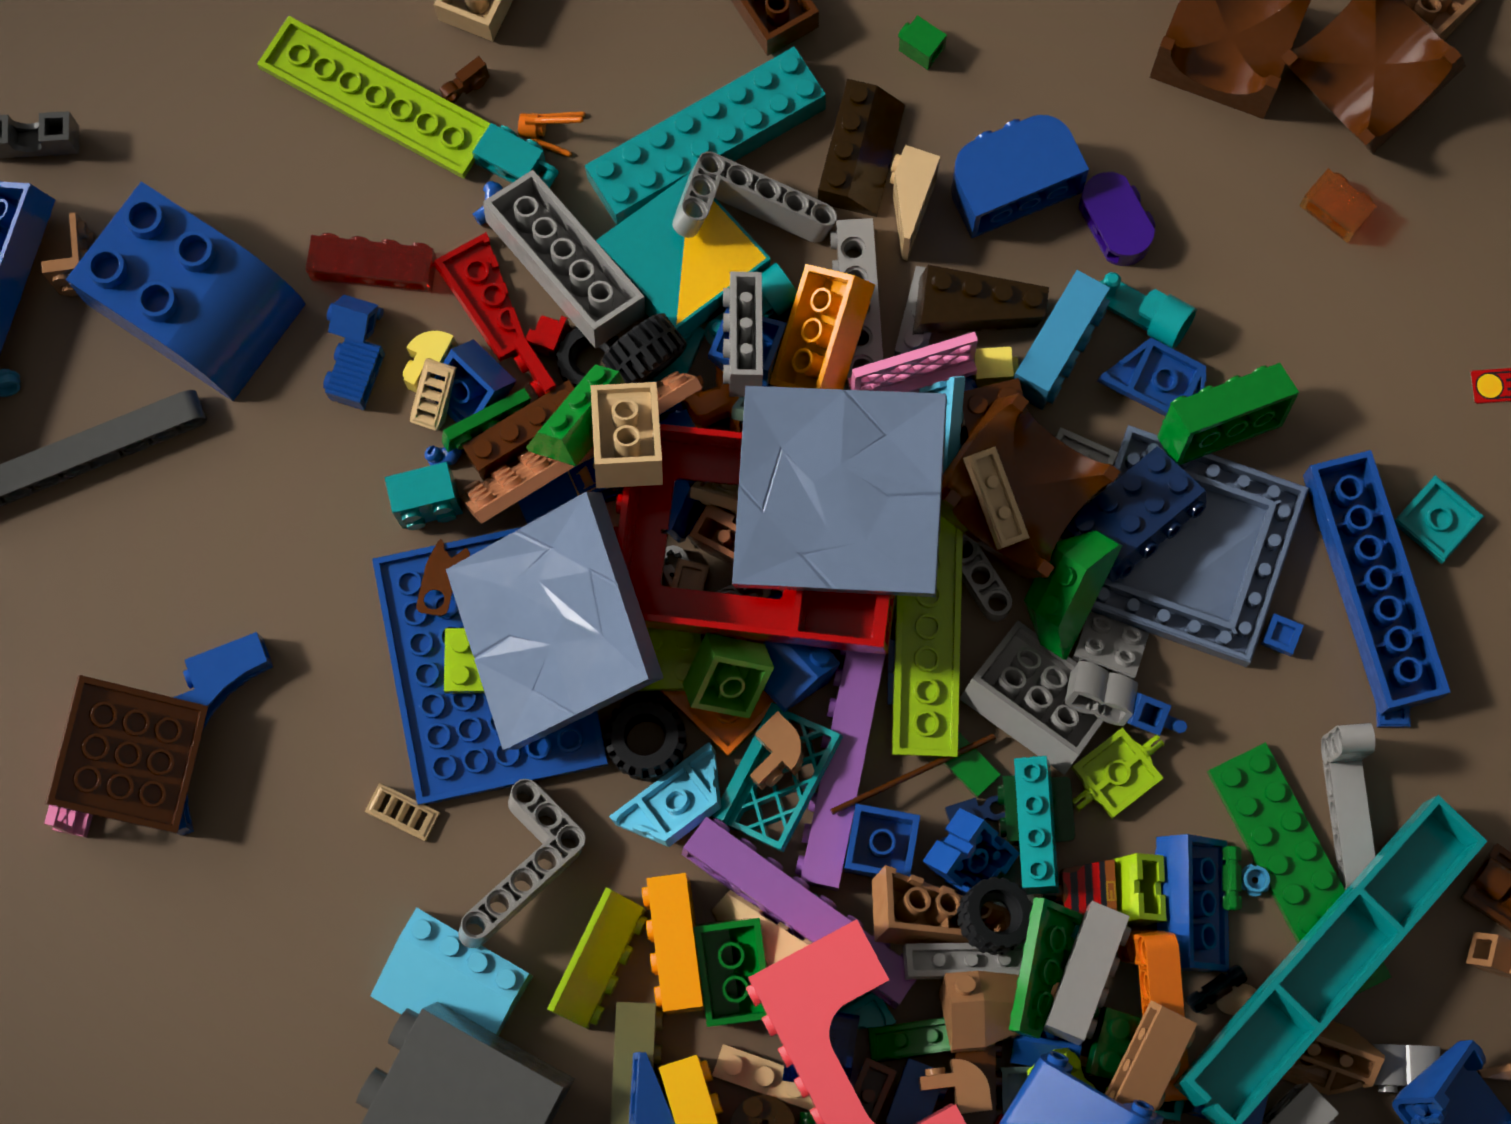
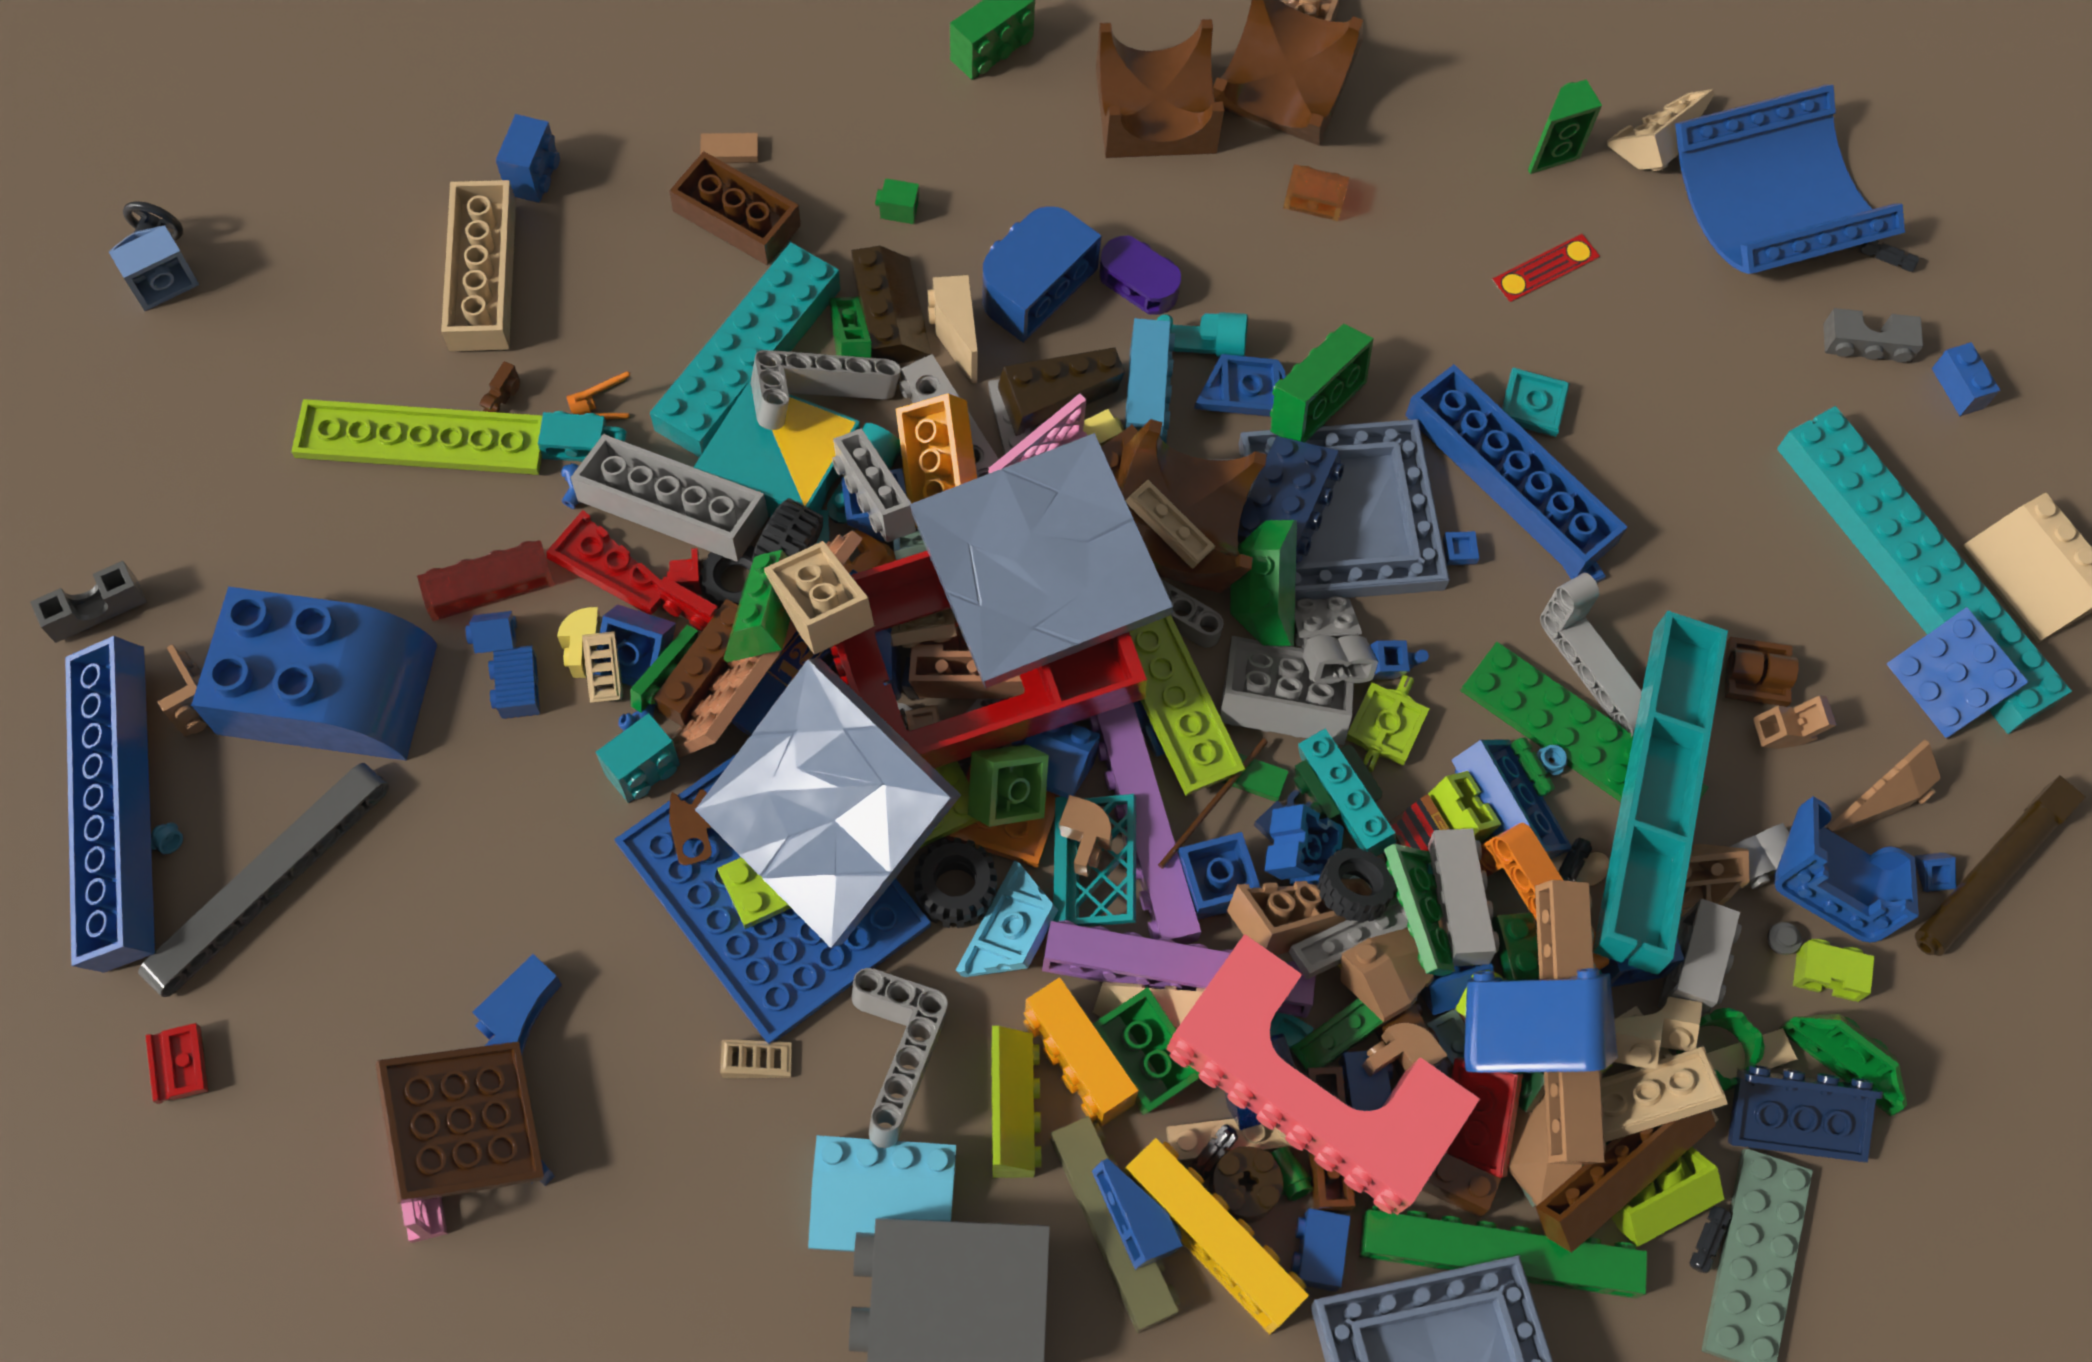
camera: 35 degrees left, 10 degrees down
(747, 1088) = (1214, 1151): none -> black axle
(810, 156) = (849, 327): none -> green slope

